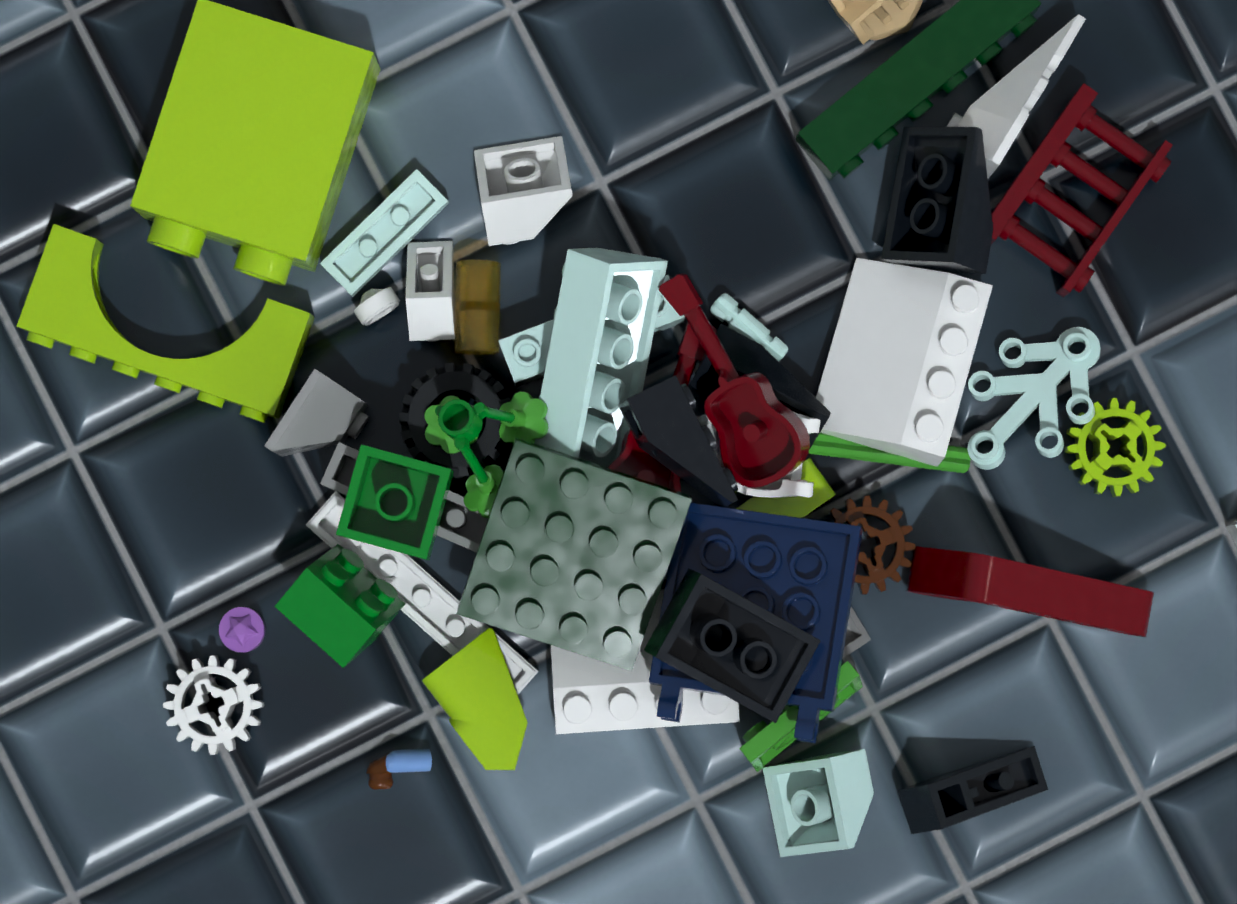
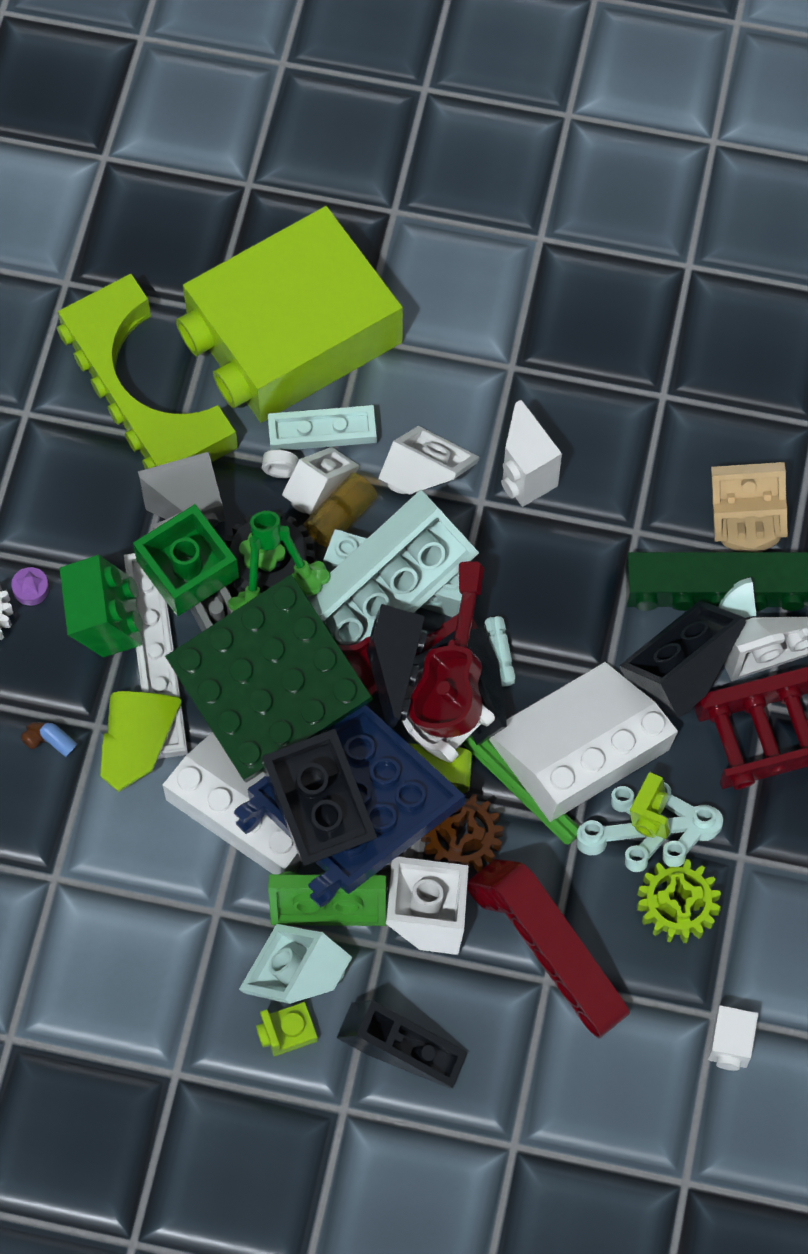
camera: 40 degrees right, 20 degrees down
(619, 107) = (530, 458): none -> white slope
(857, 866) = (286, 1029): none -> lime bracket
(896, 642) = (428, 903): none -> white slope
(944, 101) = (740, 599): none -> light aqua tile
(1020, 376) = (648, 807): none -> lime bracket

